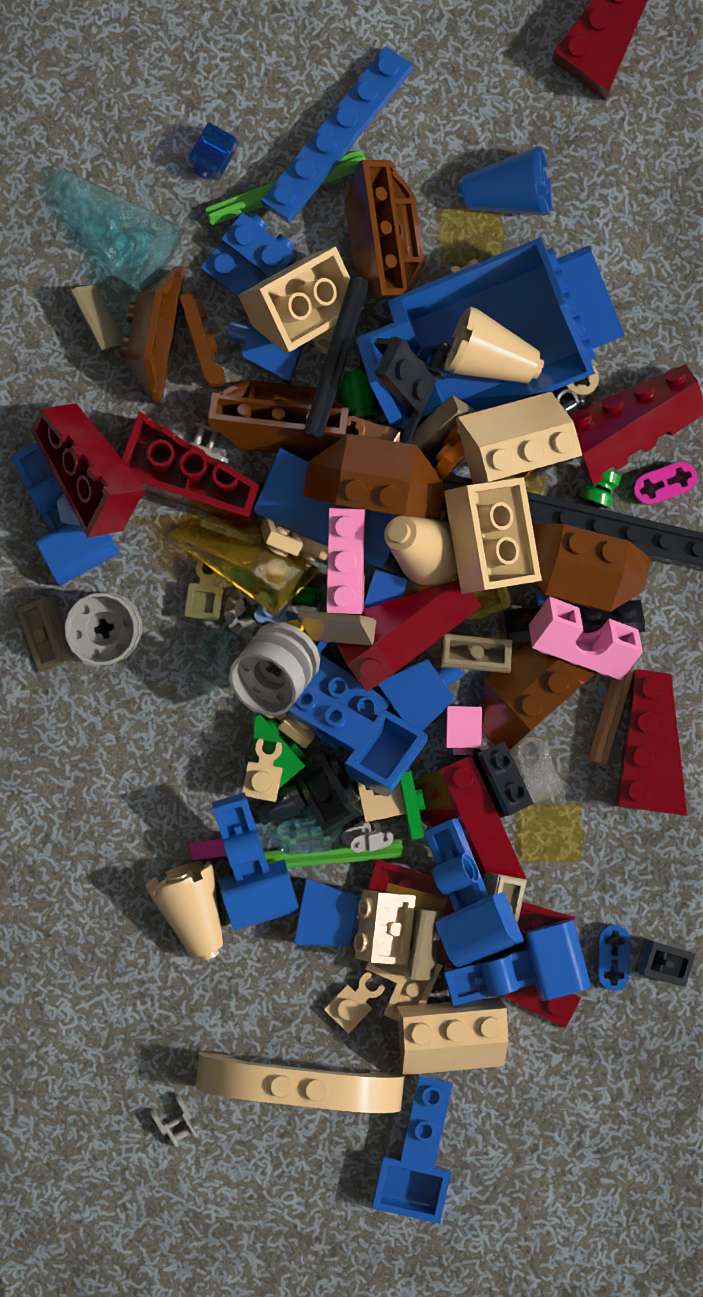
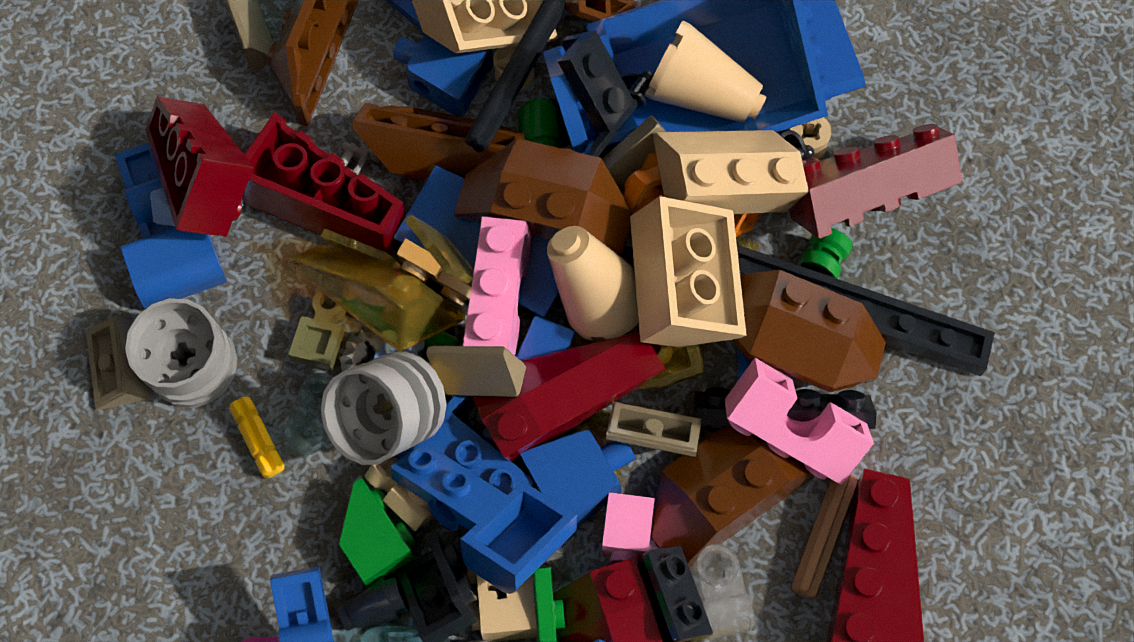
camera: 10 degrees right, 20 degrees down
(169, 683) = (256, 437): none -> yellow axle
(203, 342) = (366, 58): reddish brown plate -> none
(263, 778) = (352, 557): tan plate -> none
(302, 536) = (442, 250): none -> clear yellow piece
(667, 491) = (903, 254): dark pink beam -> none

